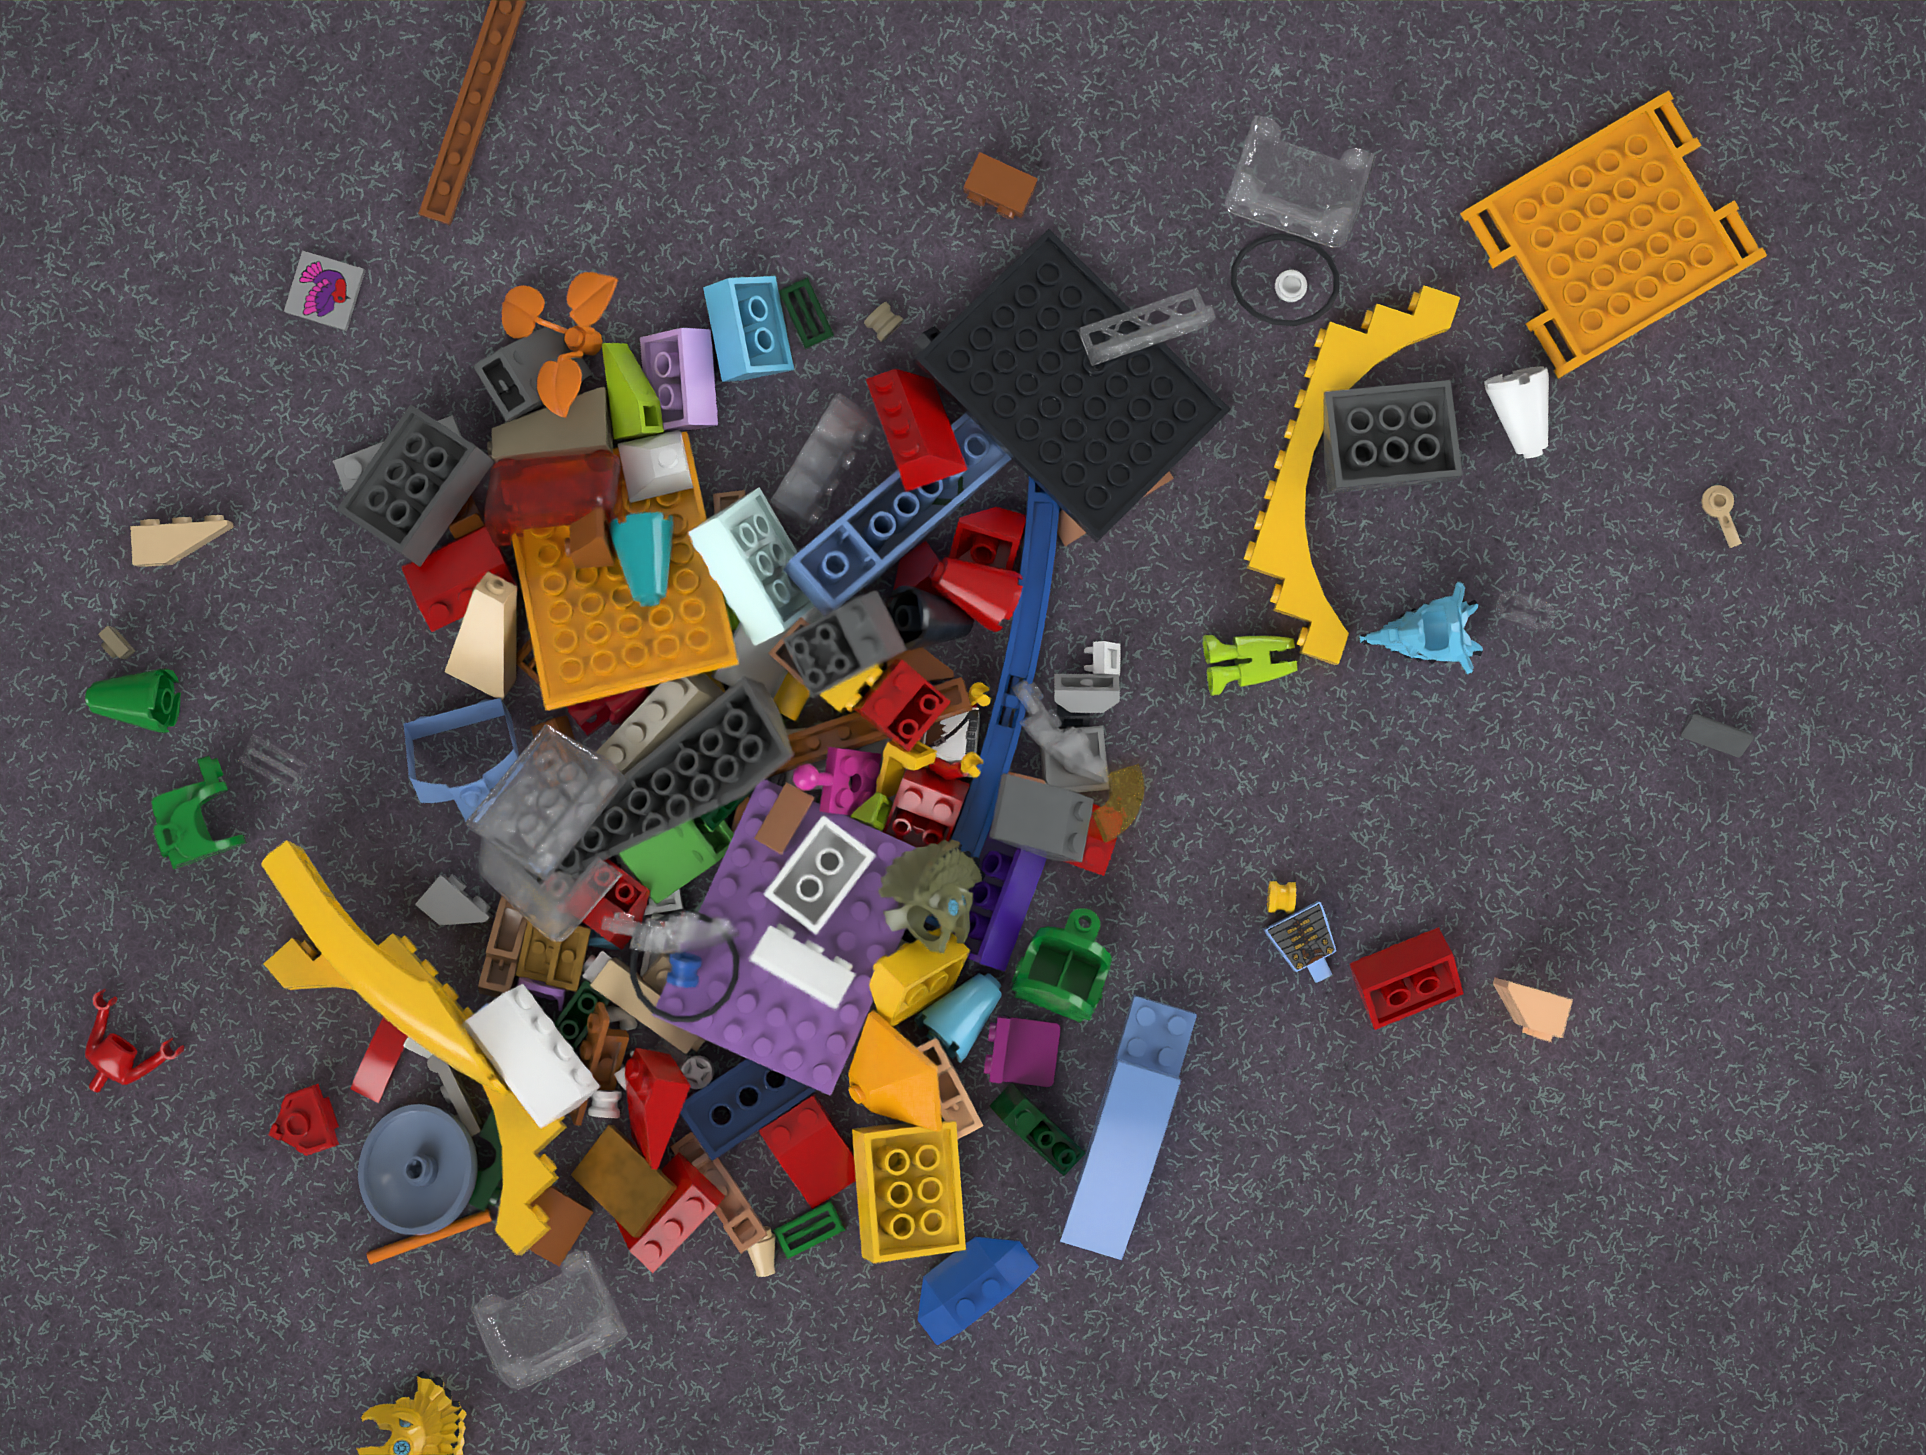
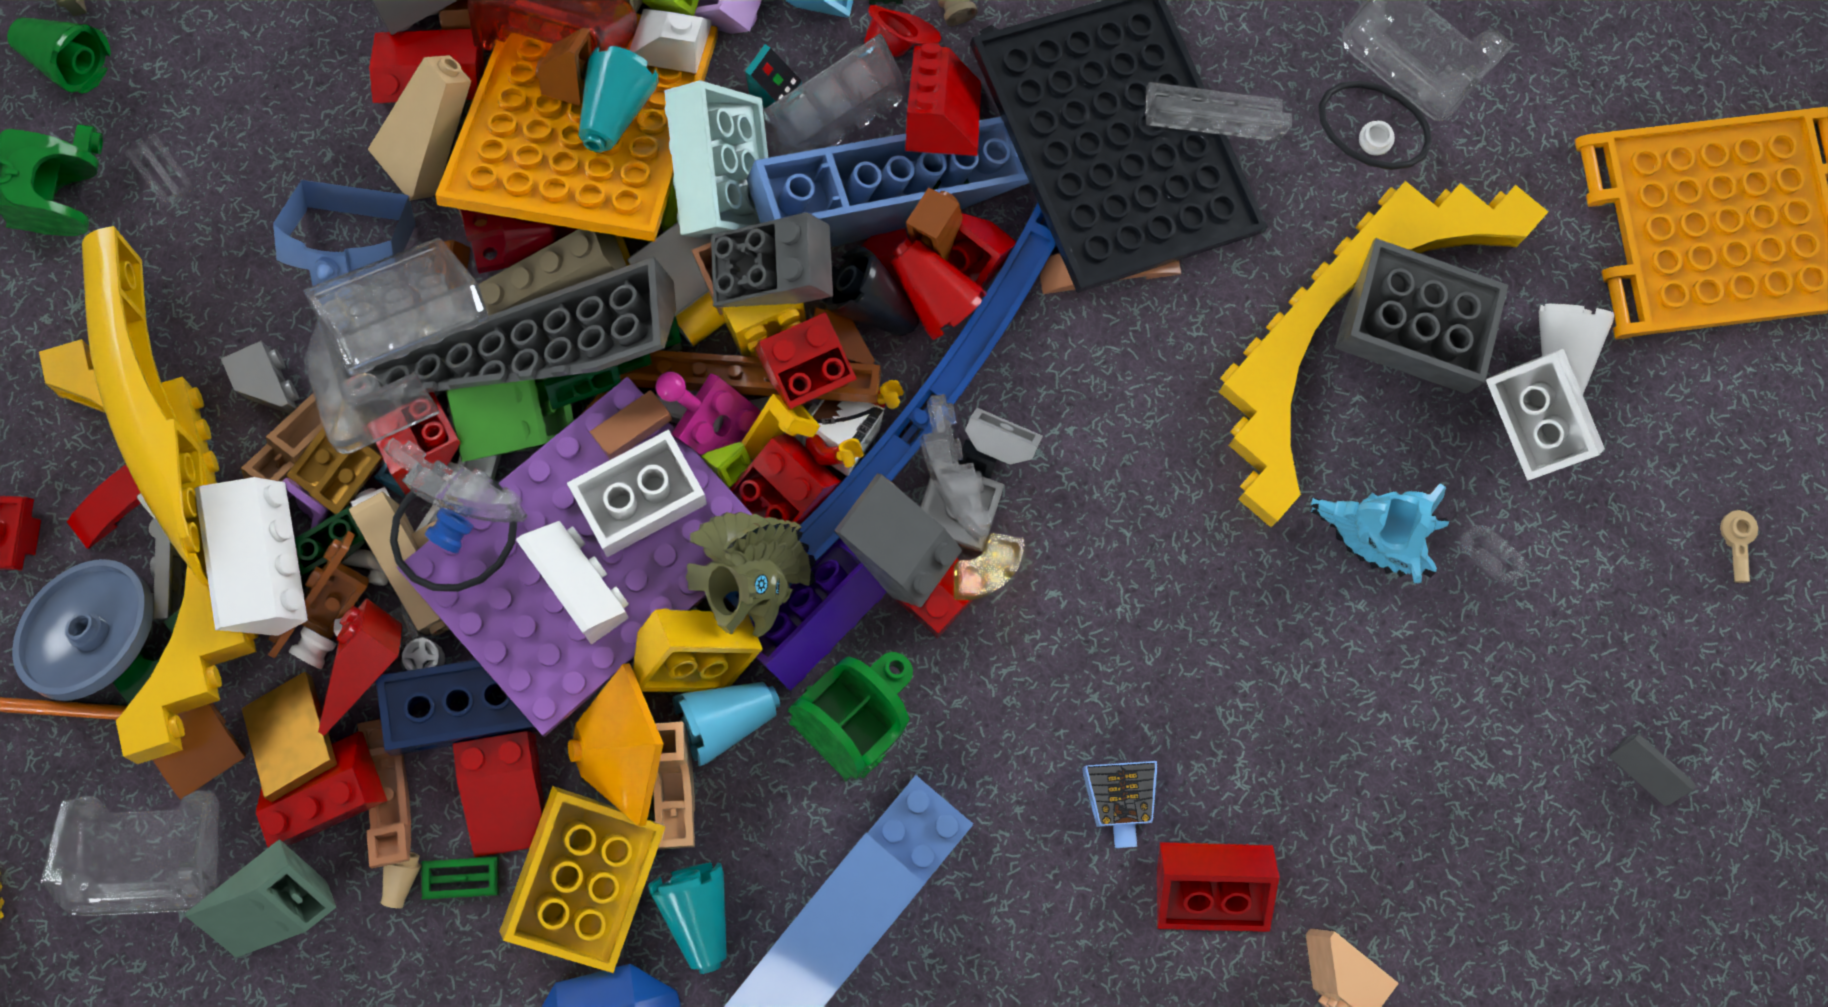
camera: 20 degrees right, 10 degrees down
(670, 1315) = (264, 902): none -> sand green slope
(763, 466) = (770, 77): none -> slope
(846, 367) = (900, 30): none -> red piece
(956, 537) = (936, 221): none -> dark orange slope
(1007, 1176) = (695, 913): none -> teal cone
(1022, 1051) = (771, 784): magenta bracket -> none
(1036, 1129) = (749, 876): dark green slope -> none
(1105, 658) = (1036, 414): white tile -> none
(1251, 660) = (1185, 483): lime piece -> none
(1281, 897) = (1116, 740): yellow wheel -> none
(1522, 480) = (1545, 414): none -> white brick

